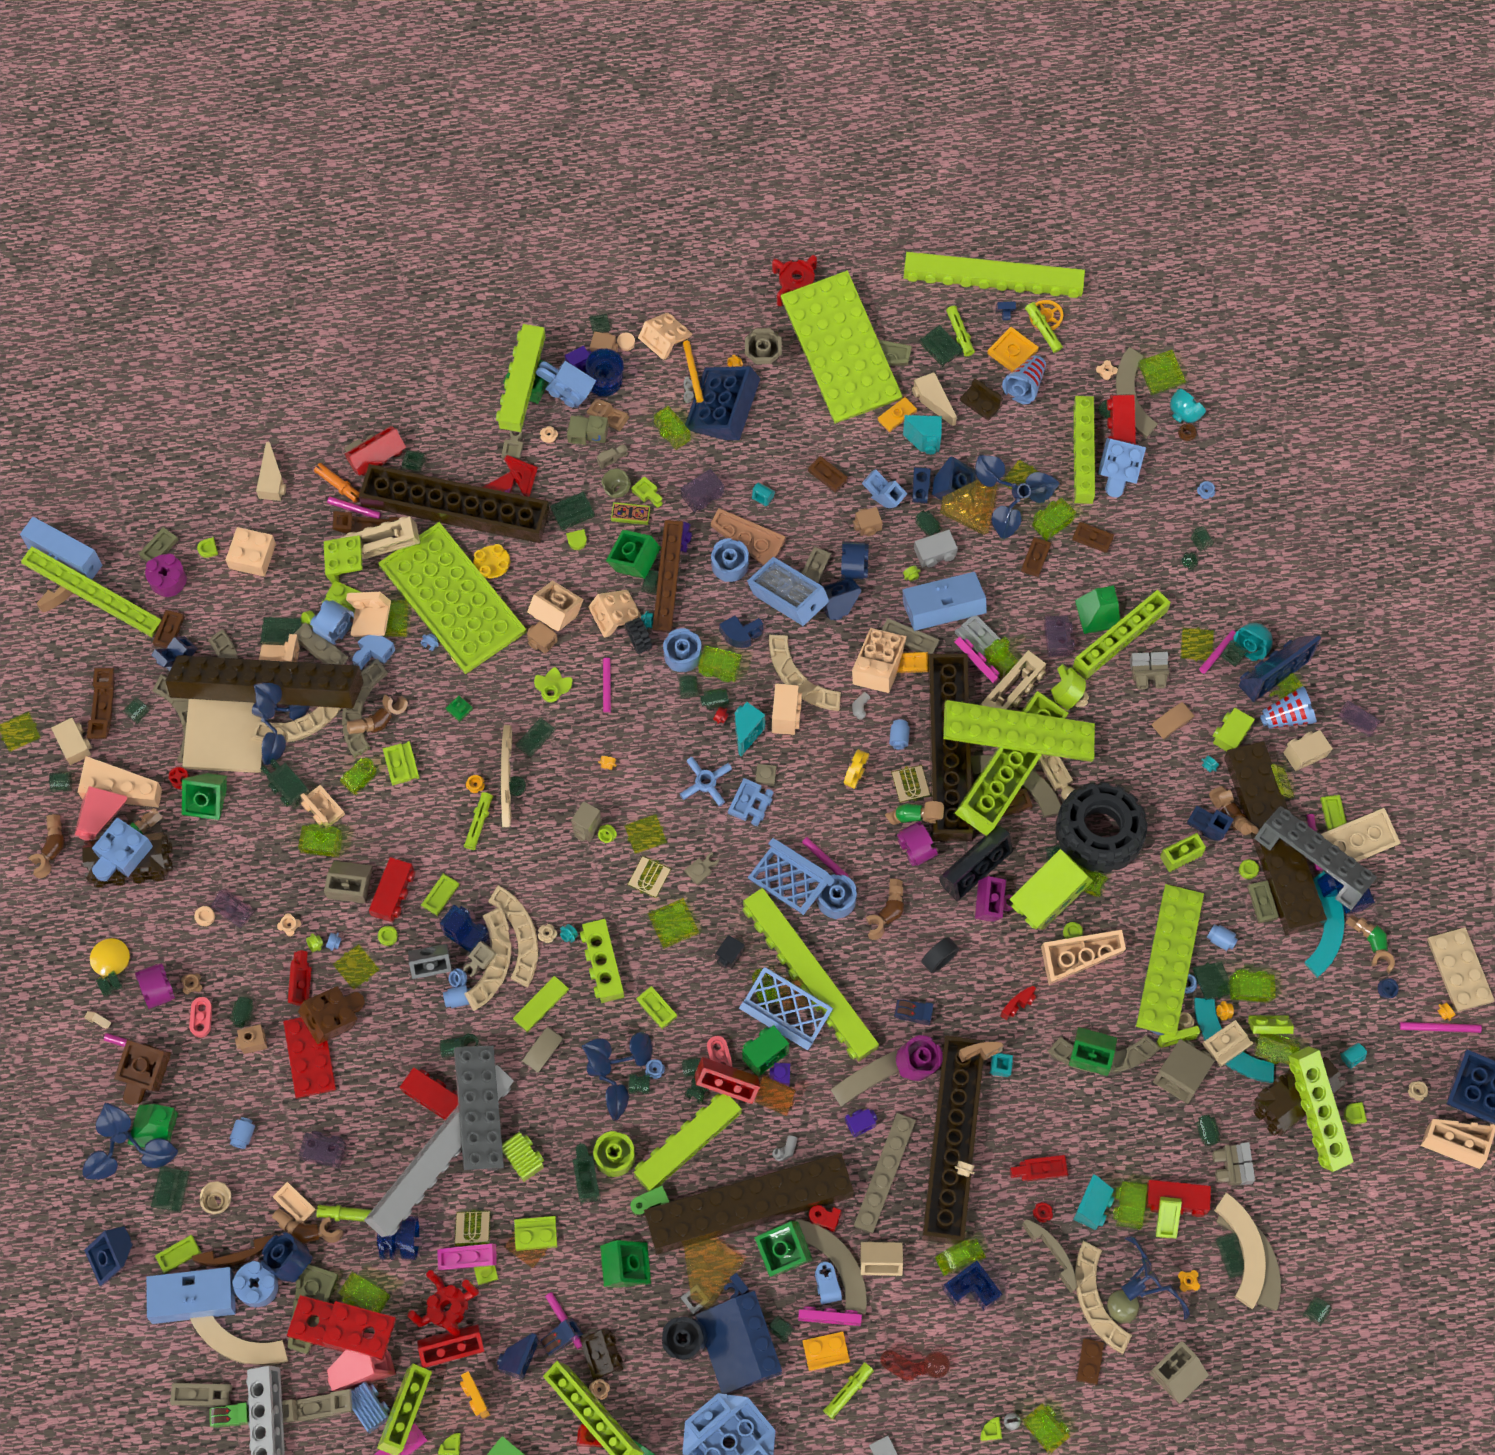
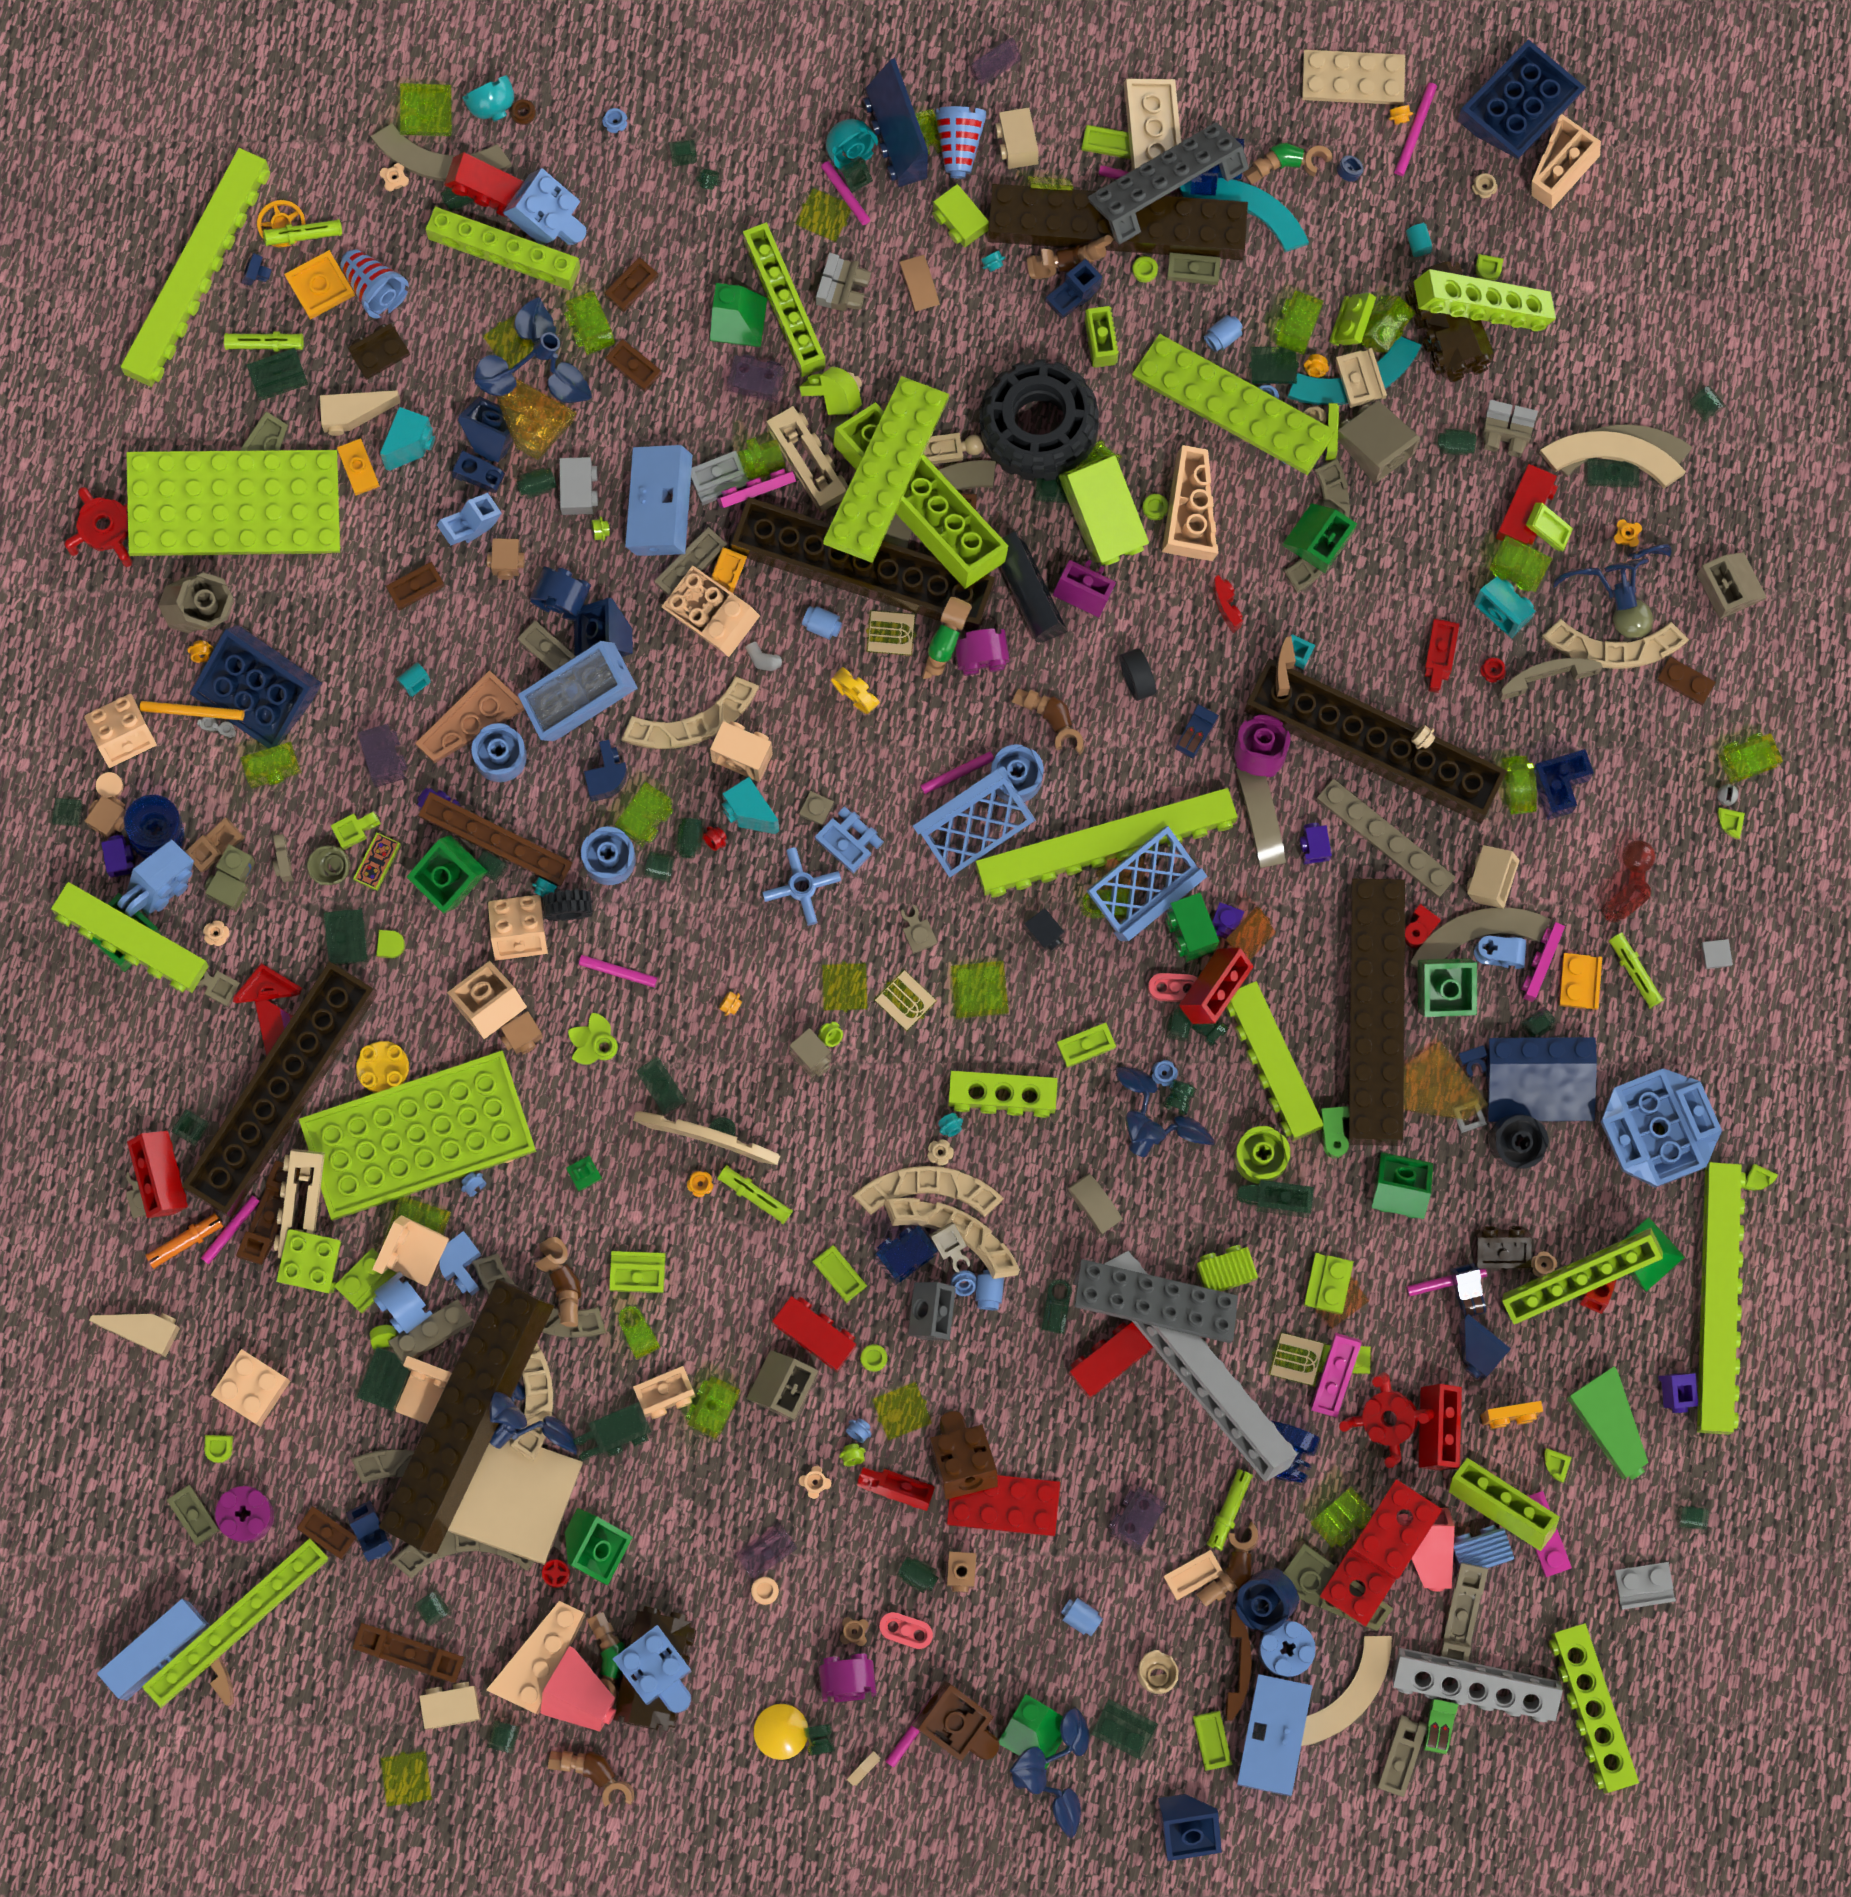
camera: 75 degrees left, 10 degrees up
(540, 1004) = (1032, 1189): lime tile -> none
(787, 1151) = (1321, 945): light grey arm -> none

